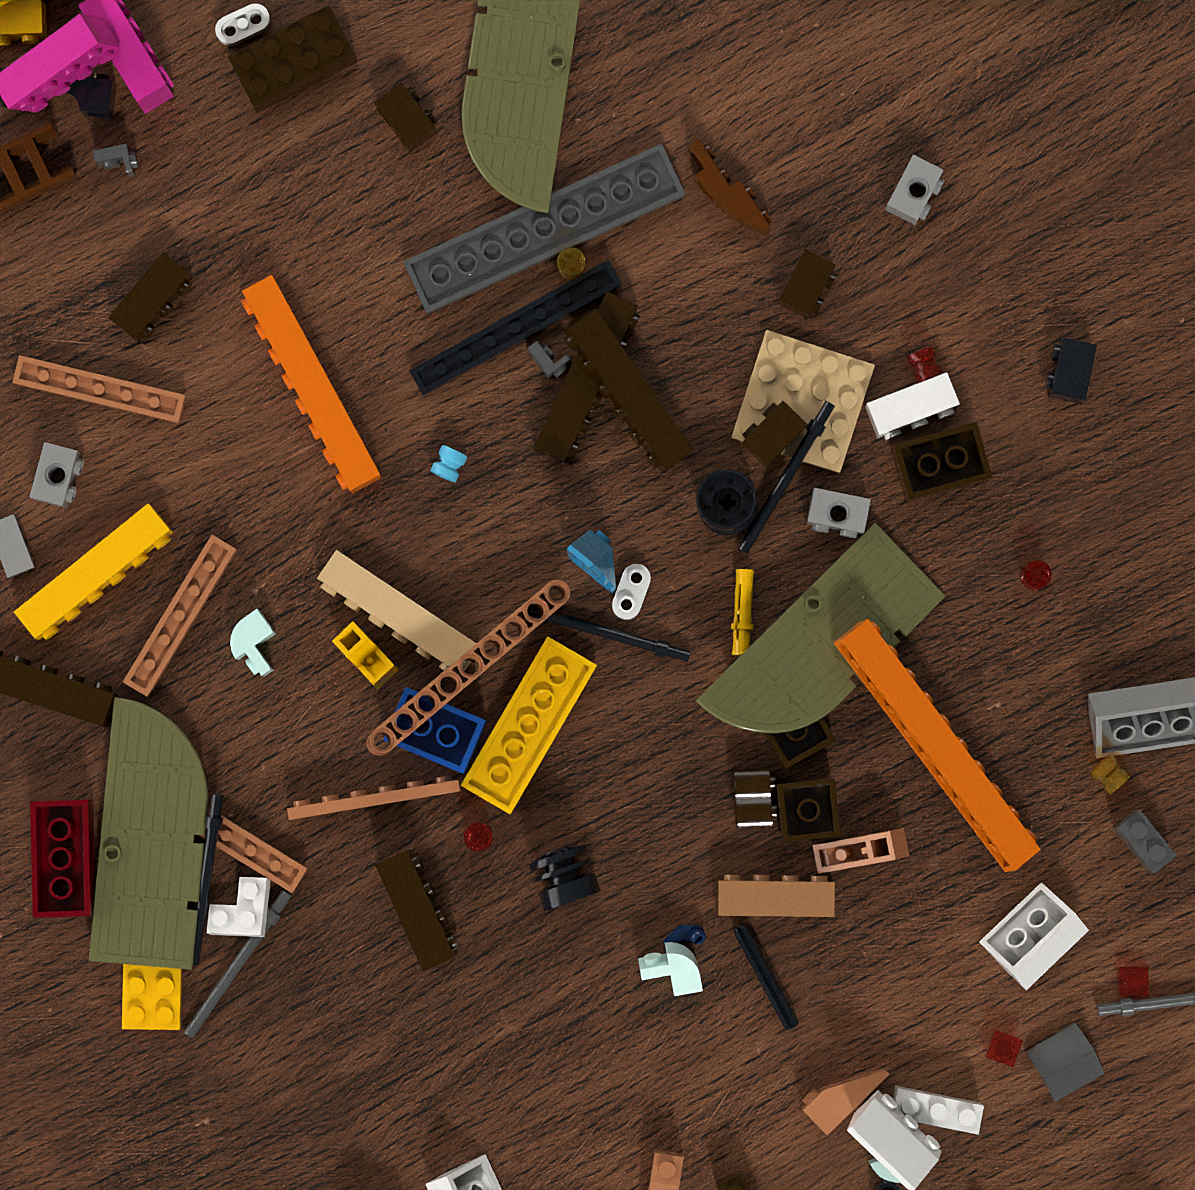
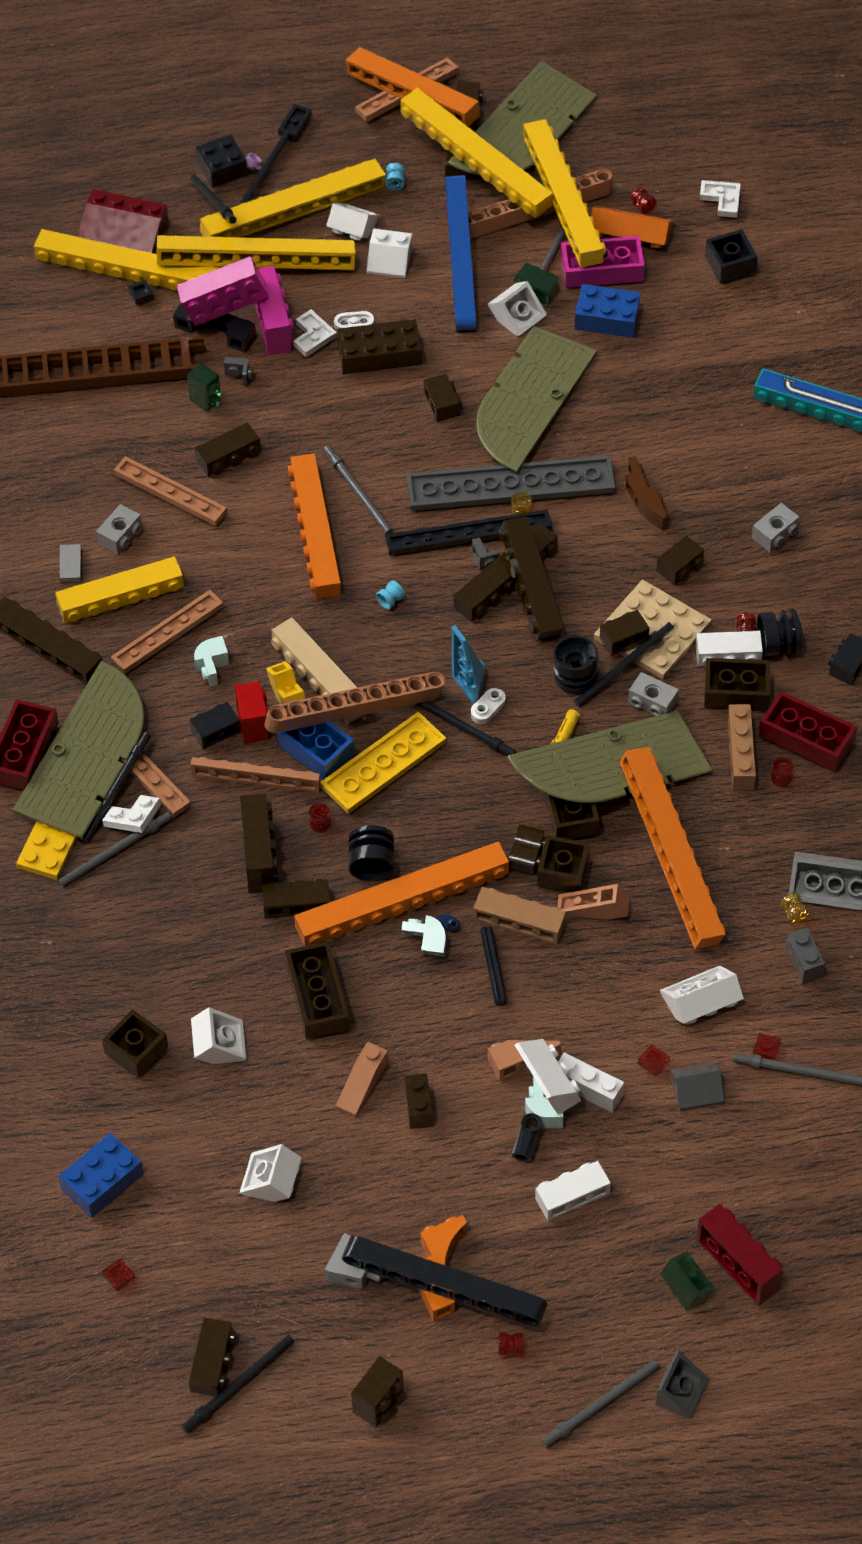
camera: 15 degrees right, 30 degrees down
(84, 212) = (204, 387): none -> clear green brick
(201, 61) = (316, 333): none -> white plate
(295, 741) = (215, 725): none -> black brick
(303, 268) = (338, 463): none -> dark grey bar
(338, 714) = (252, 711): none -> red brick
(490, 964) = (294, 897): none -> dark brown brick
(565, 1094) = (317, 990): none -> dark brown brick
(620, 916) = (402, 894): none -> orange brick
(974, 555) = (741, 747): none -> medium nougat brick
(979, 364) = (780, 632): none -> black wheel
(1052, 506) = (807, 731): none -> dark red brick

